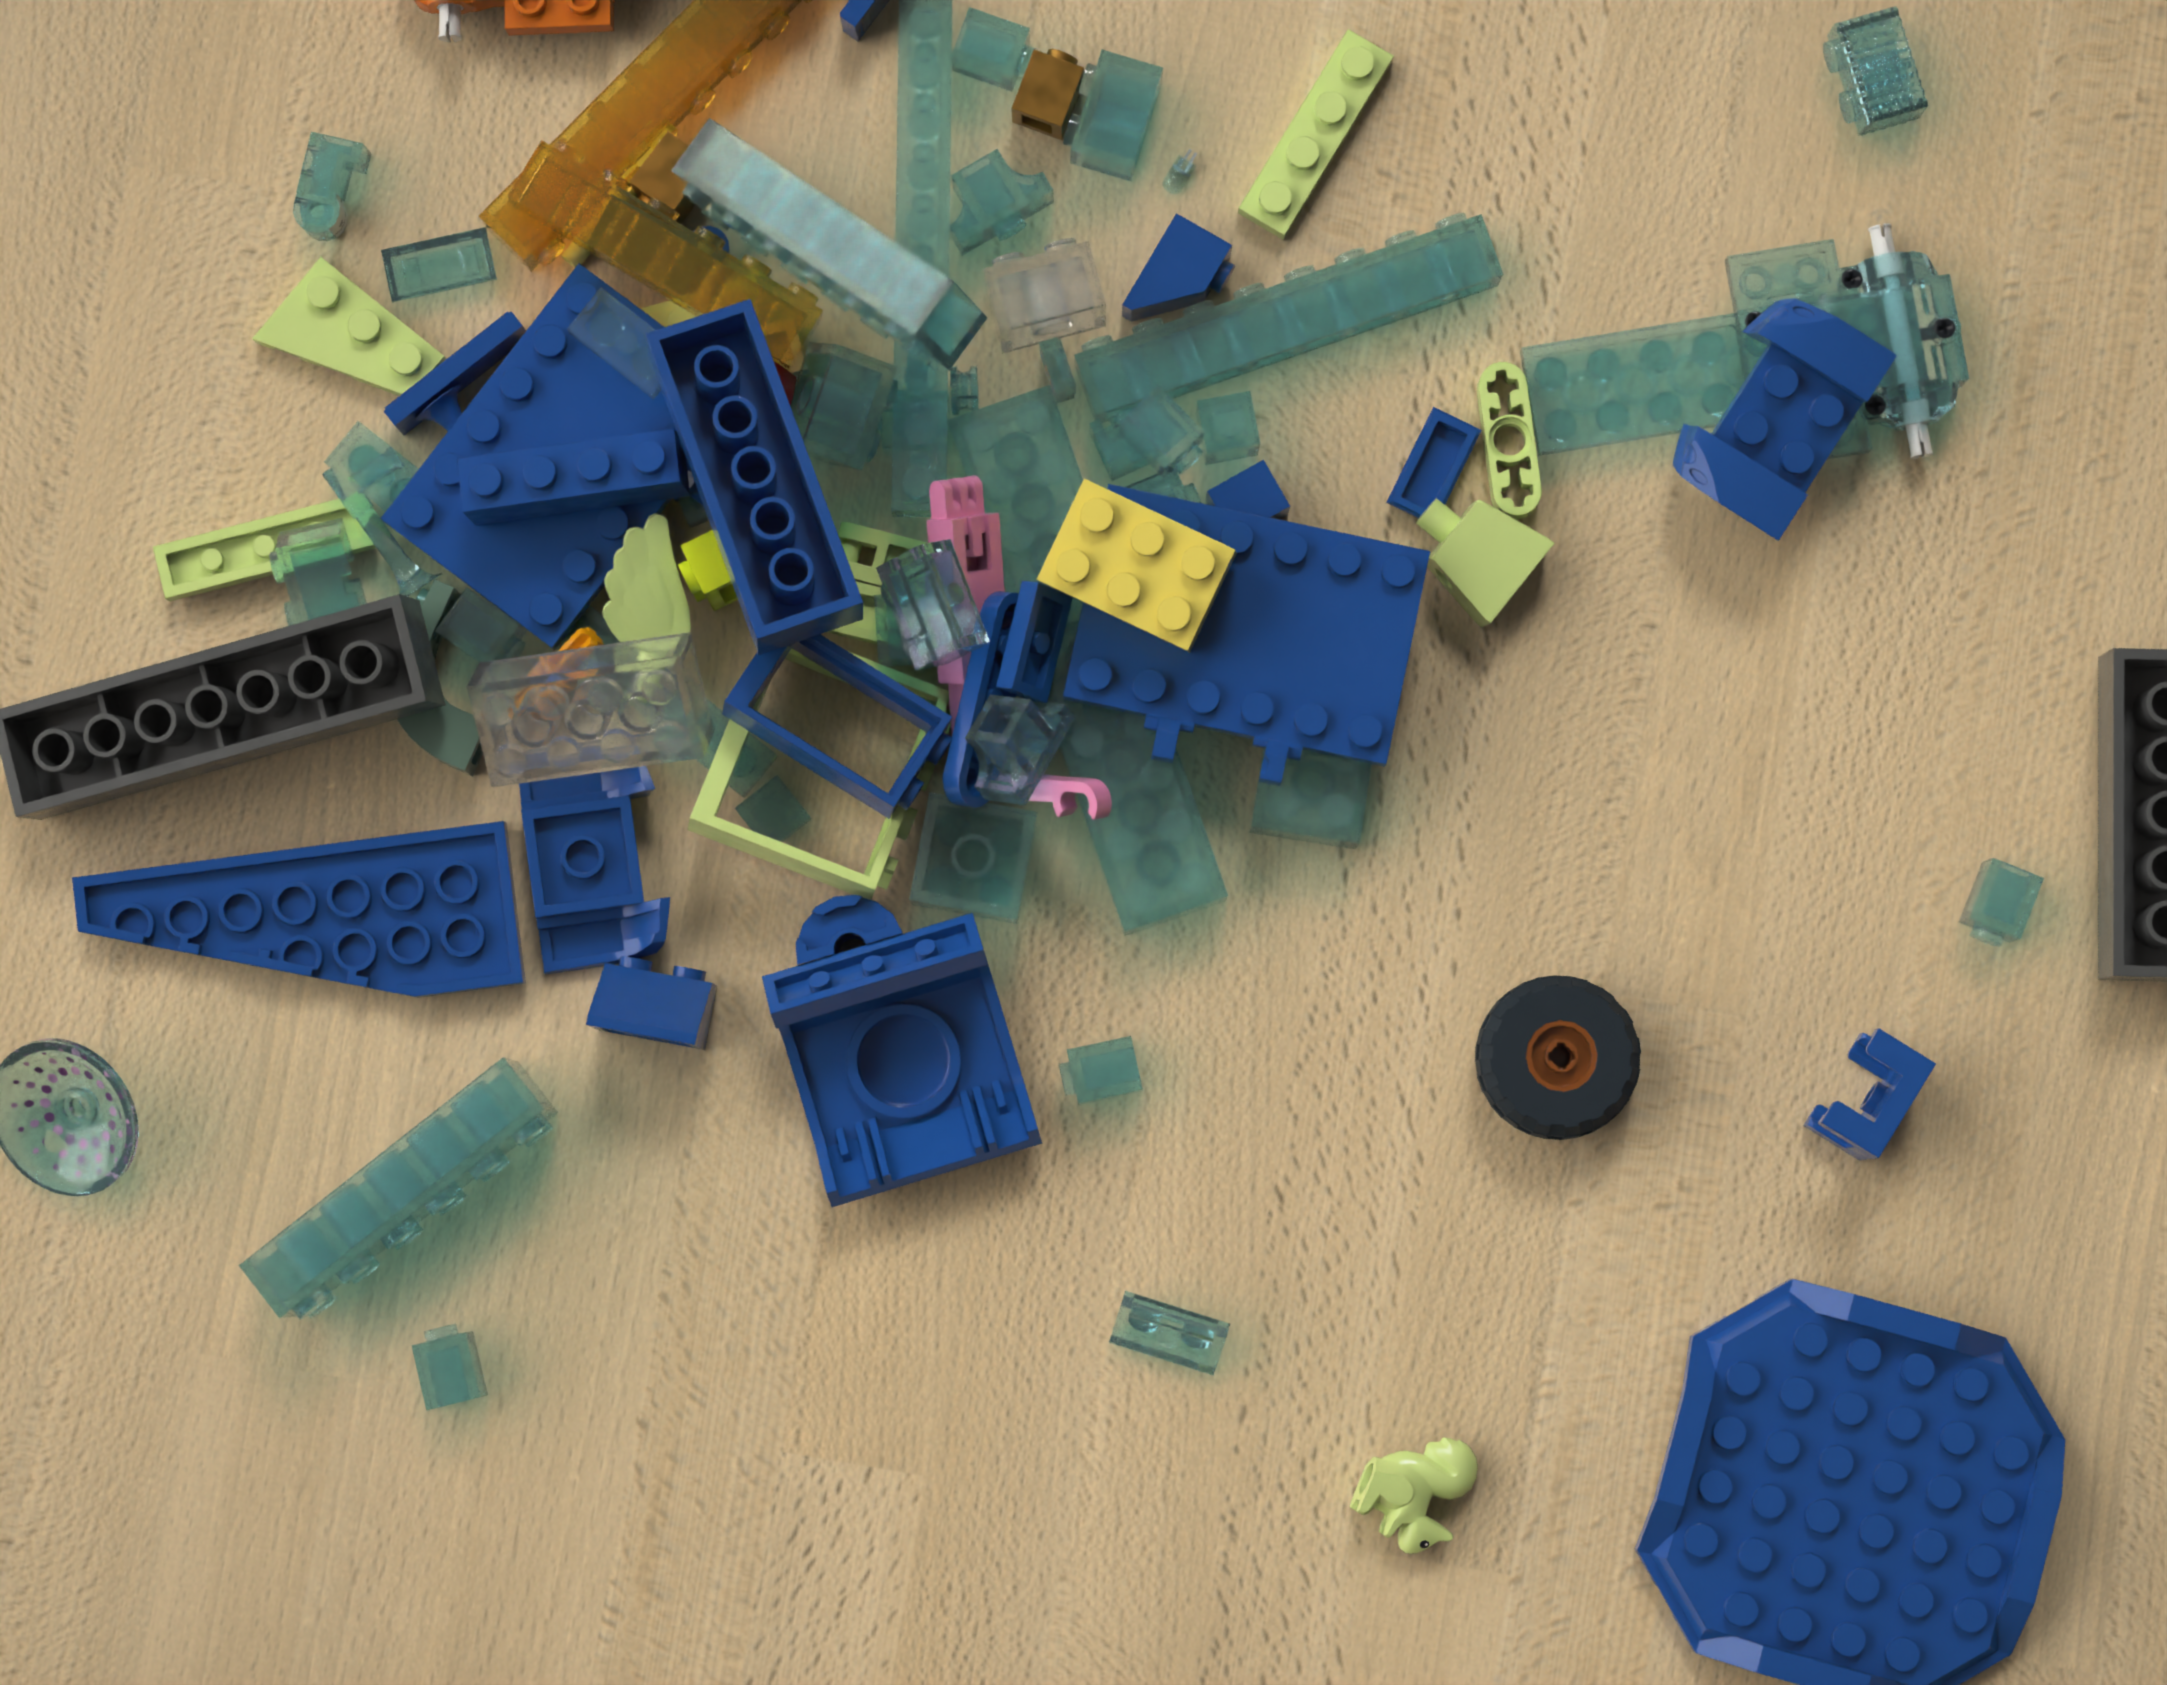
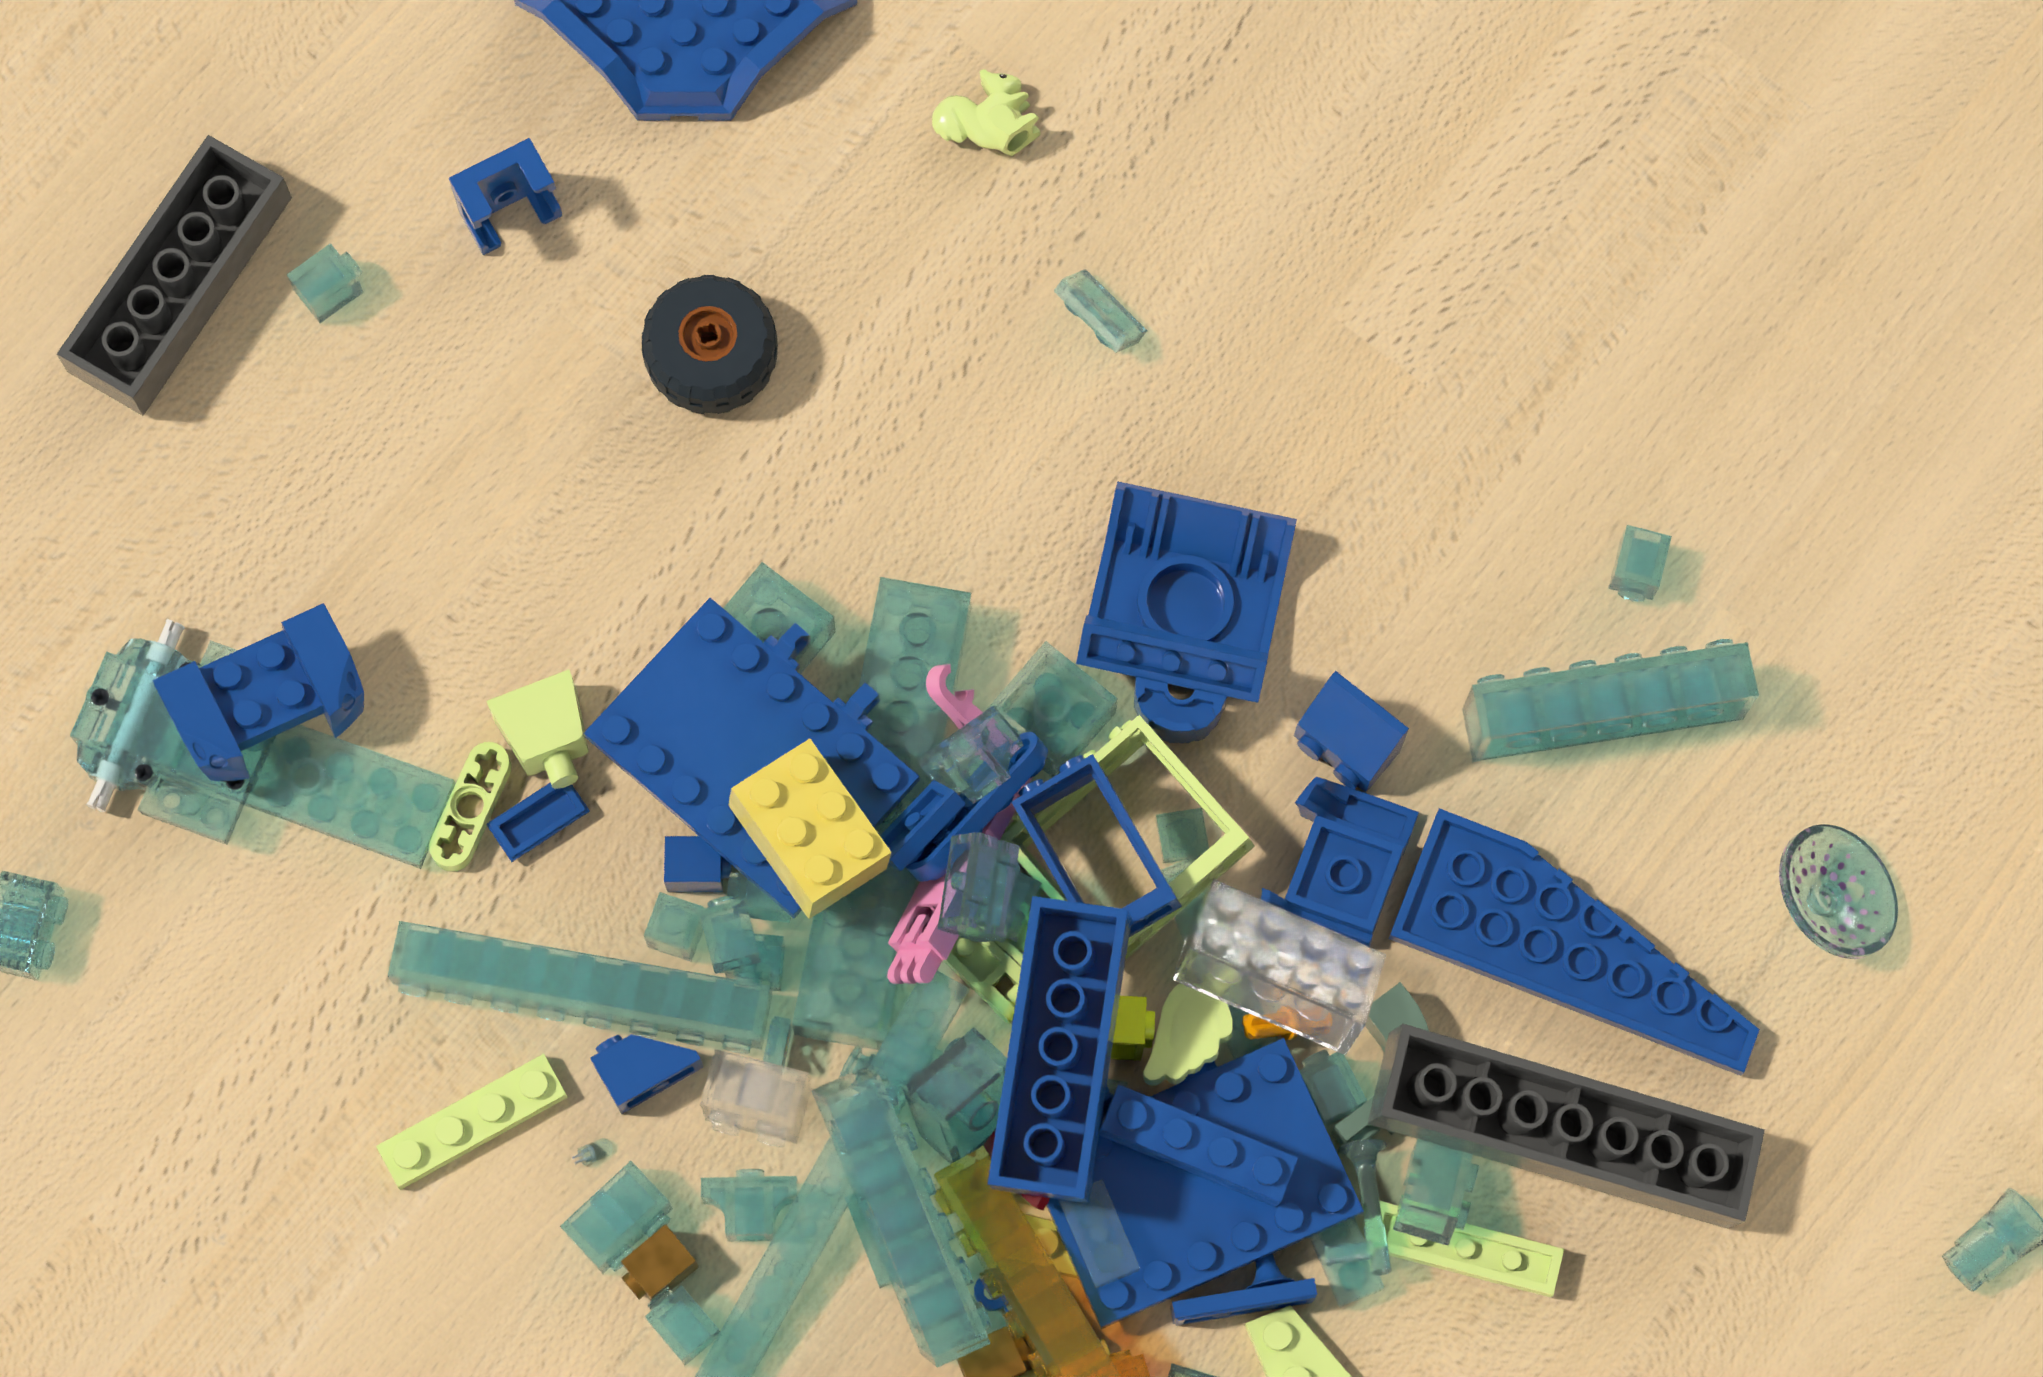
camera: 155 degrees left, 10 degrees down
(1101, 1071) = (1044, 514): clear light blue brick -> none

